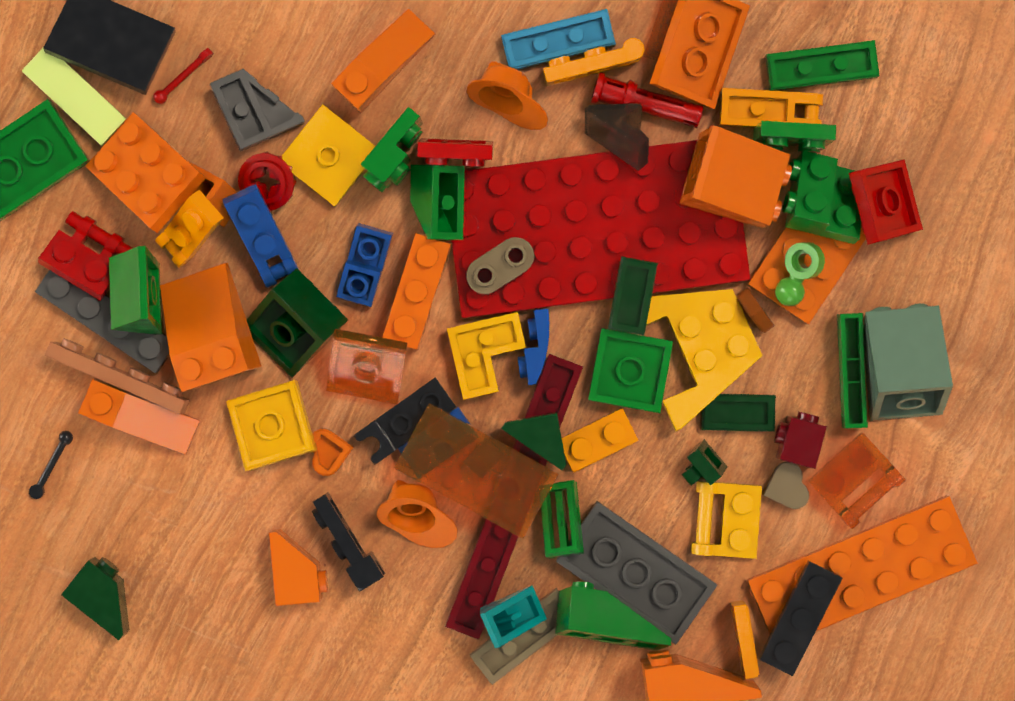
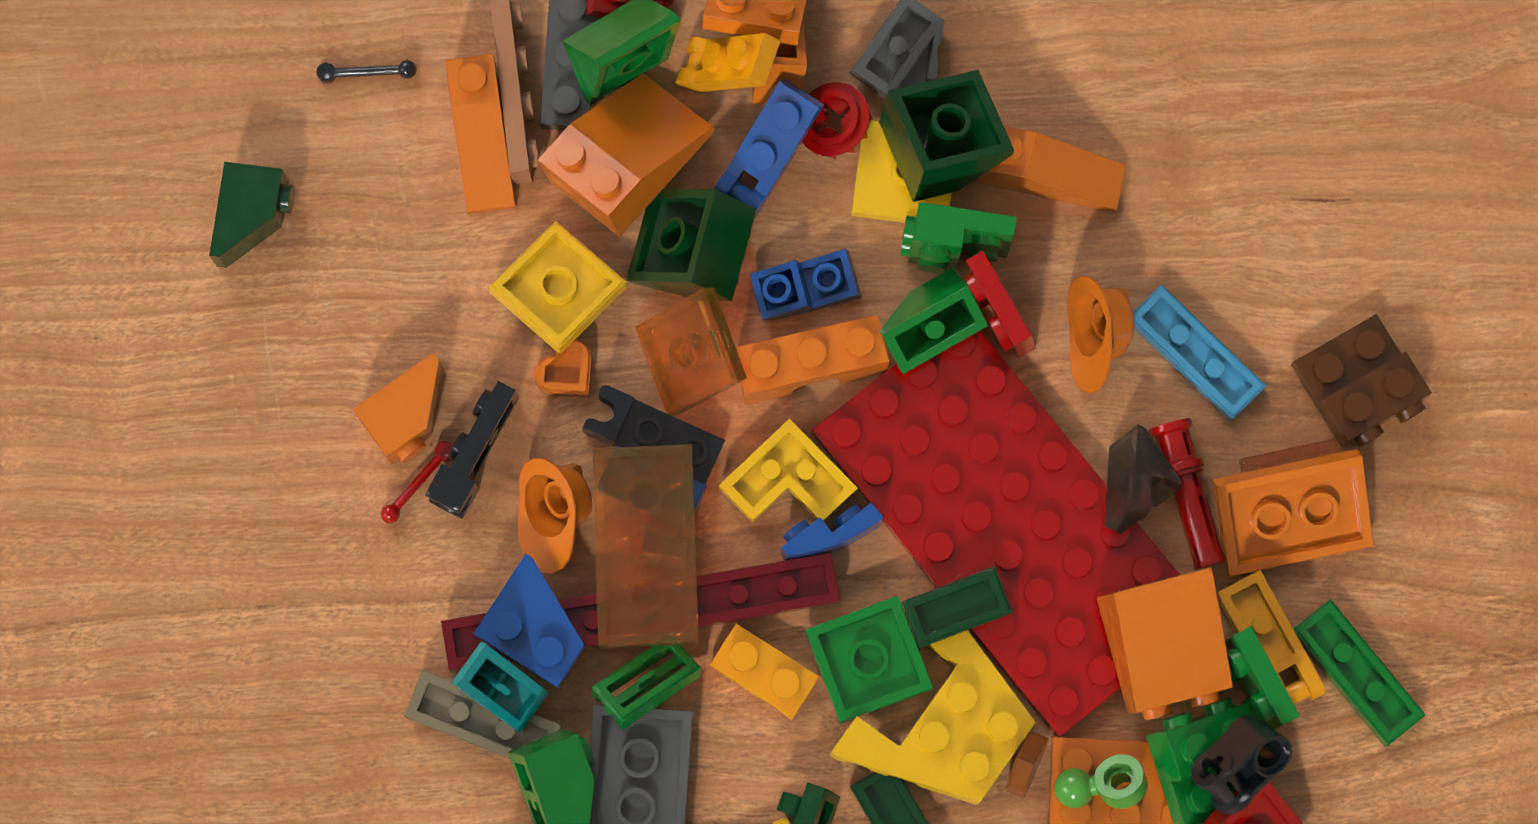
camera: 55 degrees right, 10 degrees down
(322, 117) = (944, 134): none -> dark green slope
(355, 616) = (391, 513): none -> red hinge
(484, 571) = (532, 626): none -> blue wing
(500, 265) = (896, 438): dark tan plate -> none
(541, 435) = (732, 595): dark green slope -> none
(595, 60) = (1167, 378): light orange plate -> none
(840, 177) = (1243, 759): none -> black piece

